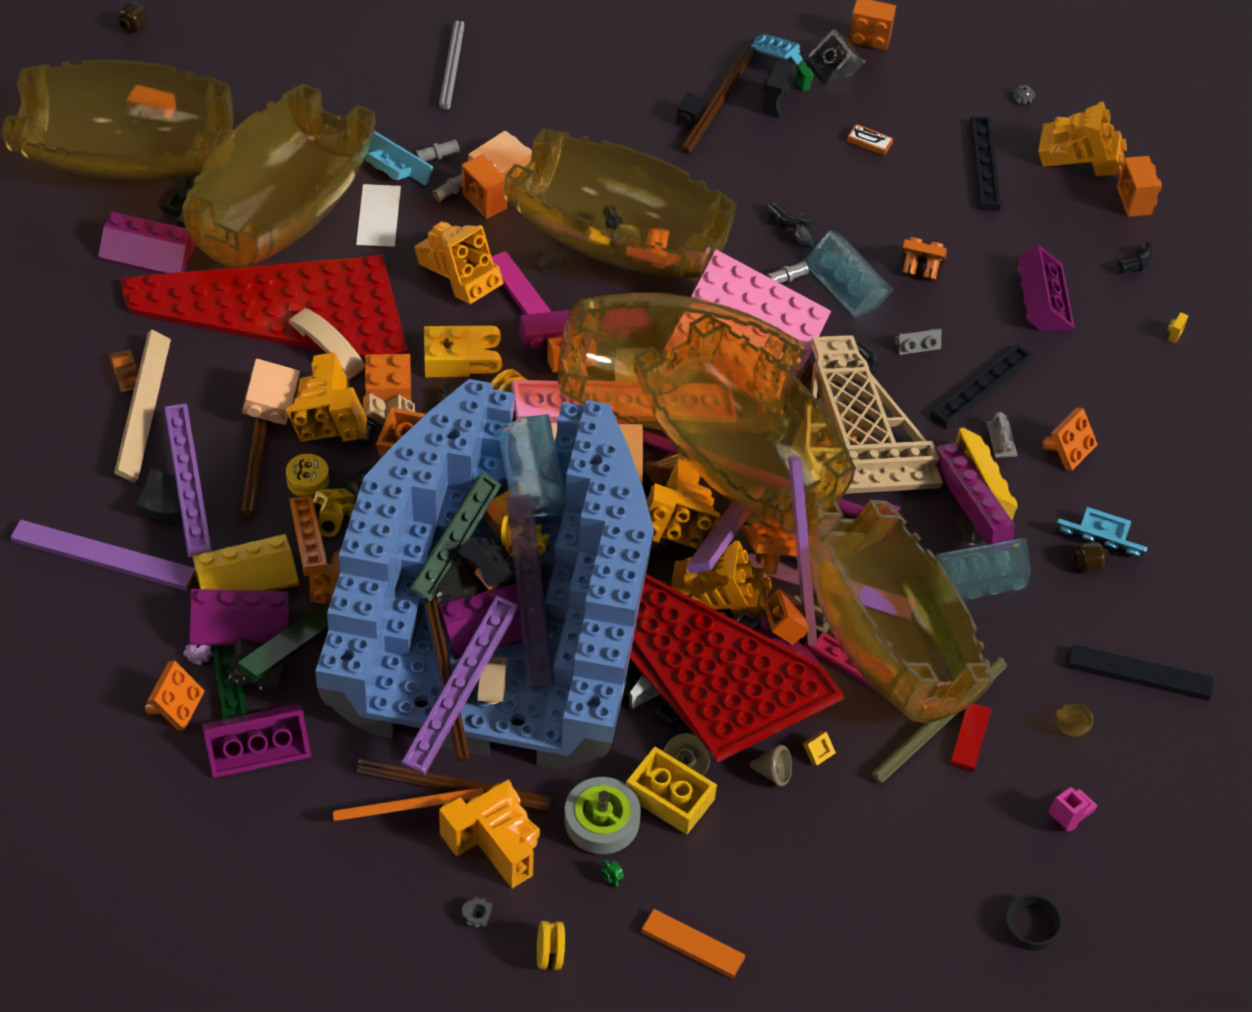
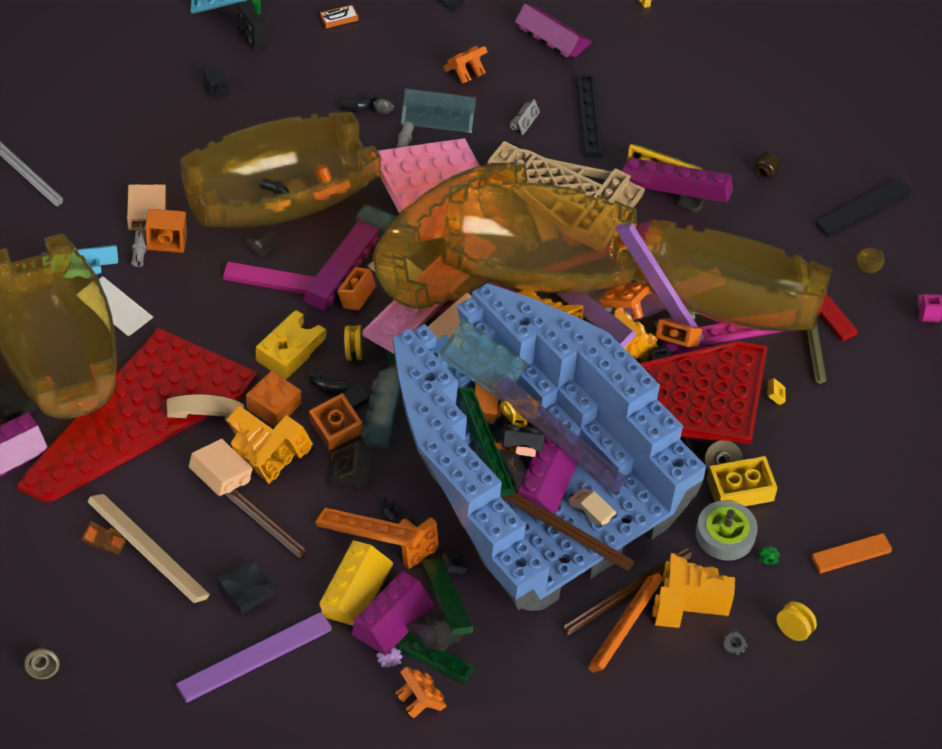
camera: 50 degrees left, 0 degrees up
(187, 480) = (250, 562): medium lavender tile -> none
(256, 740) = (496, 670): magenta slope -> none
(307, 475) = (306, 498): yellow head -> none
(334, 506) = (350, 497): yellow piece -> none
(378, 409) = (299, 412): tan slope -> none
(438, 150) = (98, 233): light grey pin -> none
(459, 685) = (586, 525): medium lavender tile -> none
(462, 257) = (216, 286): light orange brick -> none
(718, 99) = (218, 60): reddish brown axle -> none
(774, 765) = (767, 422): dark tan hat -> none
(988, 568) = (736, 211): clear light blue slope -> none
(1001, 436) = (639, 137): light grey hinge -> none
(1072, 439) = (680, 106): orange plate -> none
(1104, 528) = (752, 142): medium azure bracket -> none

